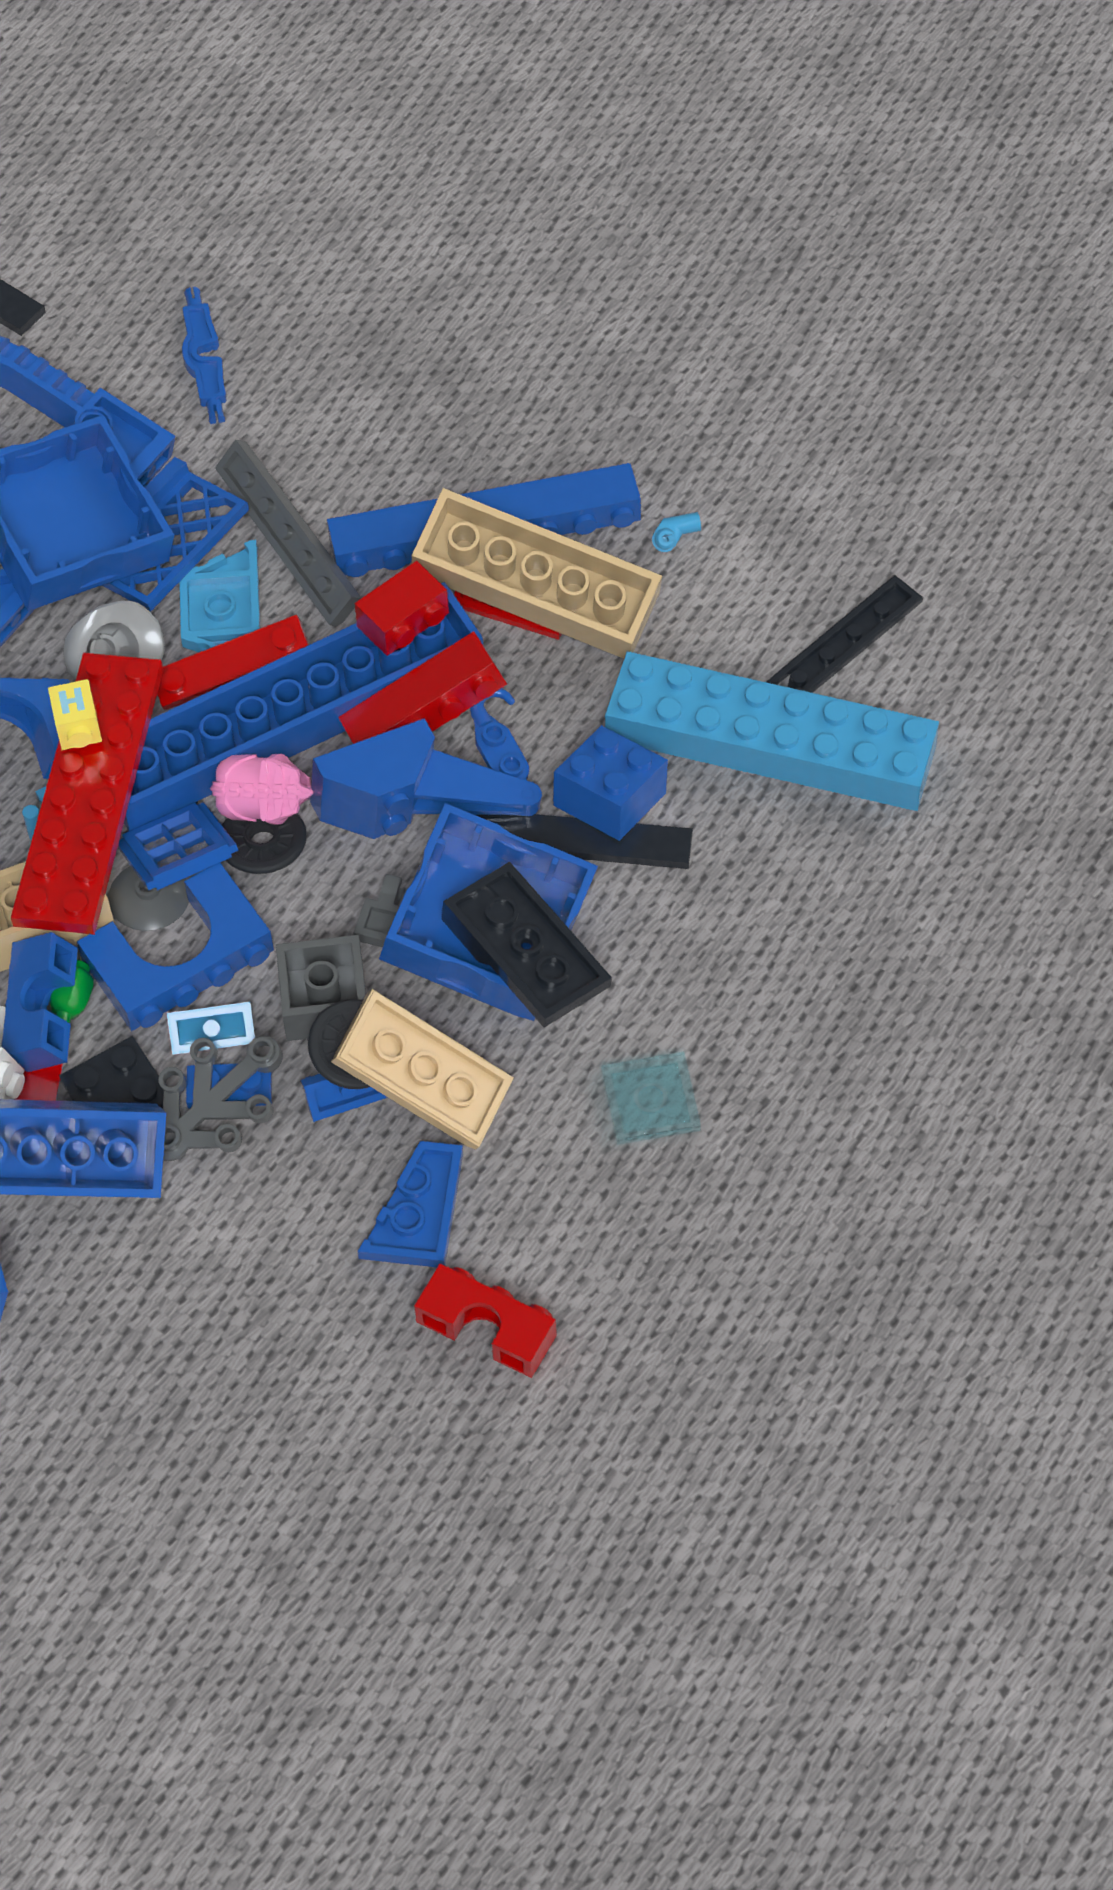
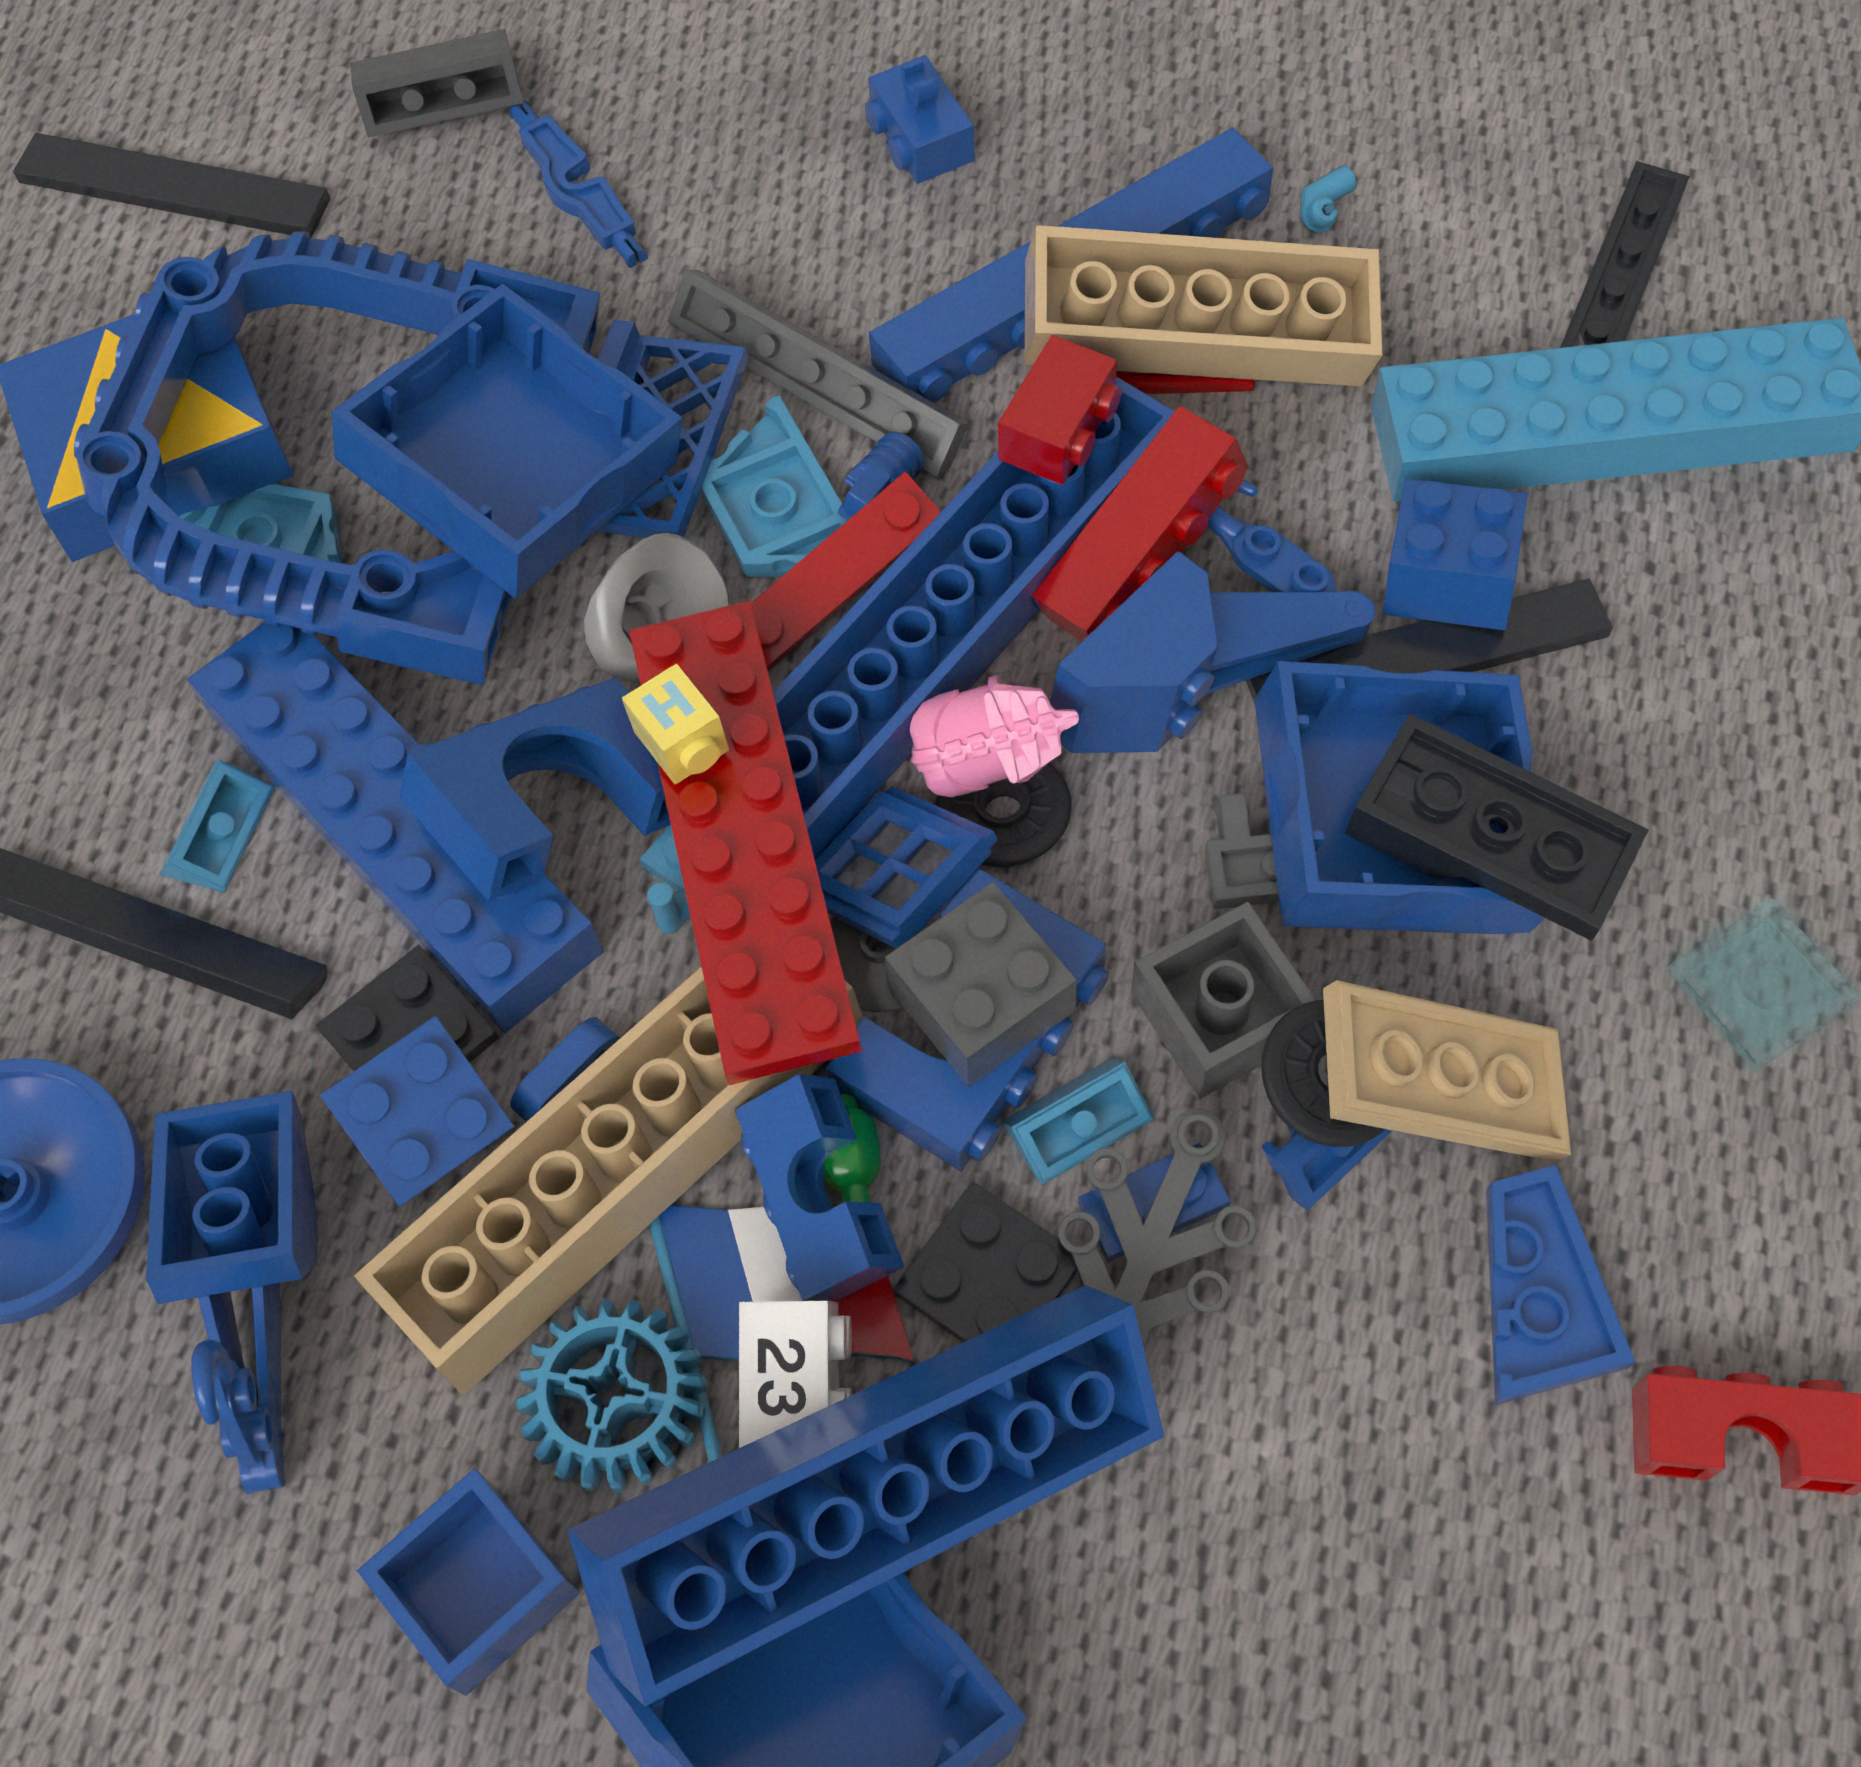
camera: 20 degrees left, 5 degrees up
(143, 258) = (435, 83): none -> dark grey brick
(180, 923) = (981, 983): none -> dark grey brick
(304, 603) = (879, 468): none -> blue hinge
(439, 388) = (920, 119): none -> blue brick

